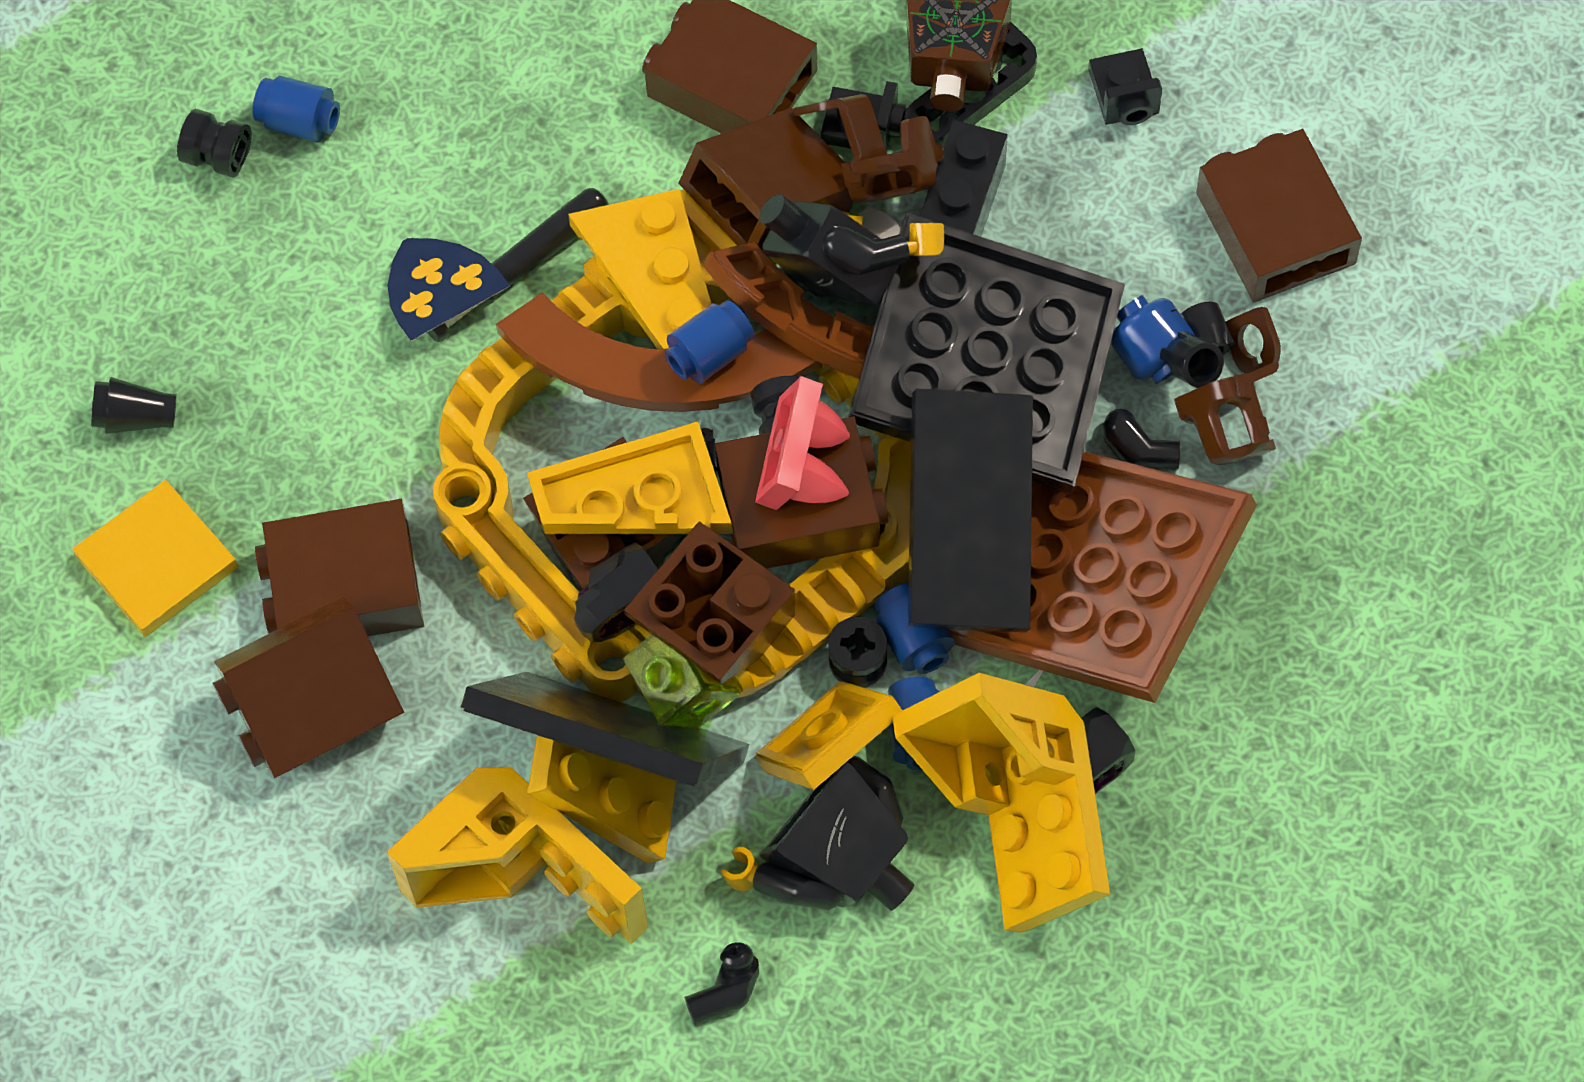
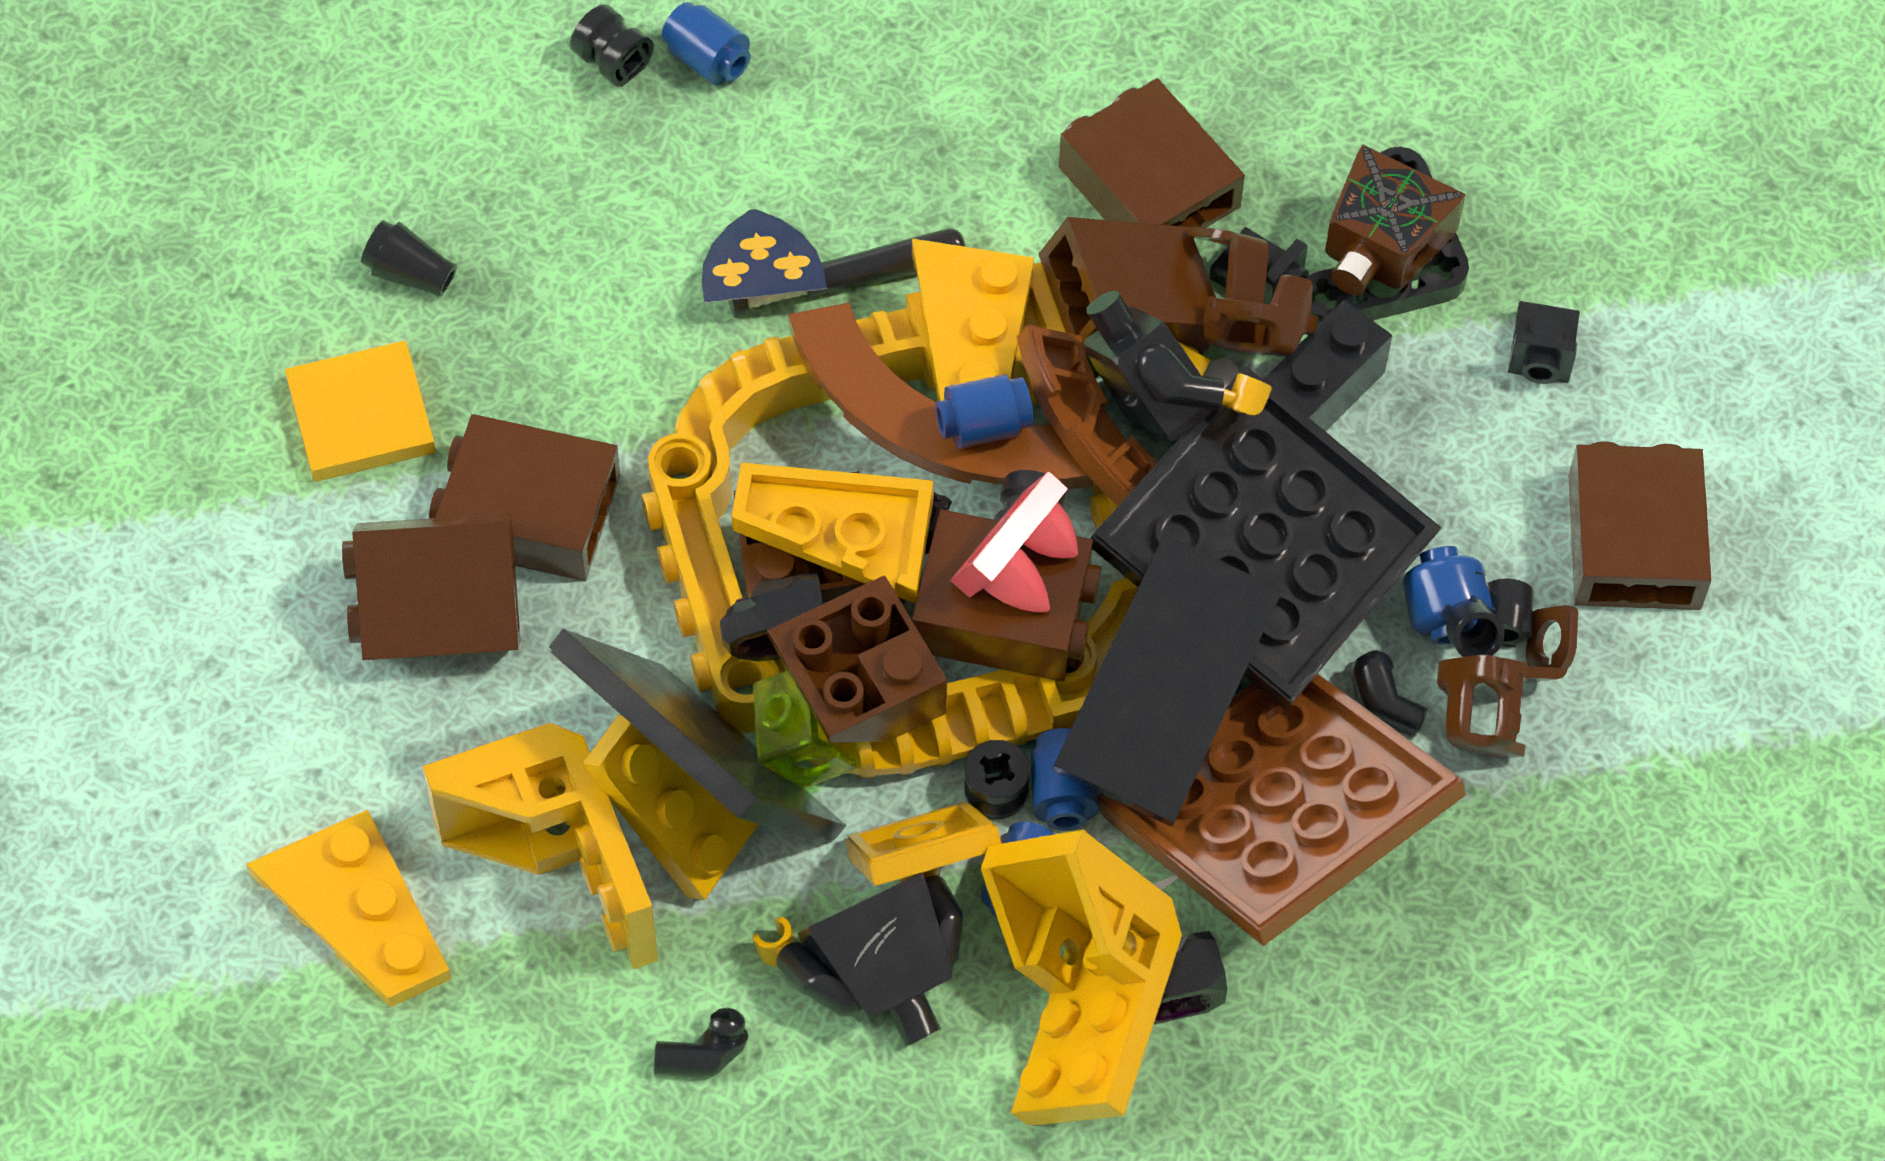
camera: 20 degrees right, 5 degrees down
(372, 989) = (358, 904): none -> yellow wing

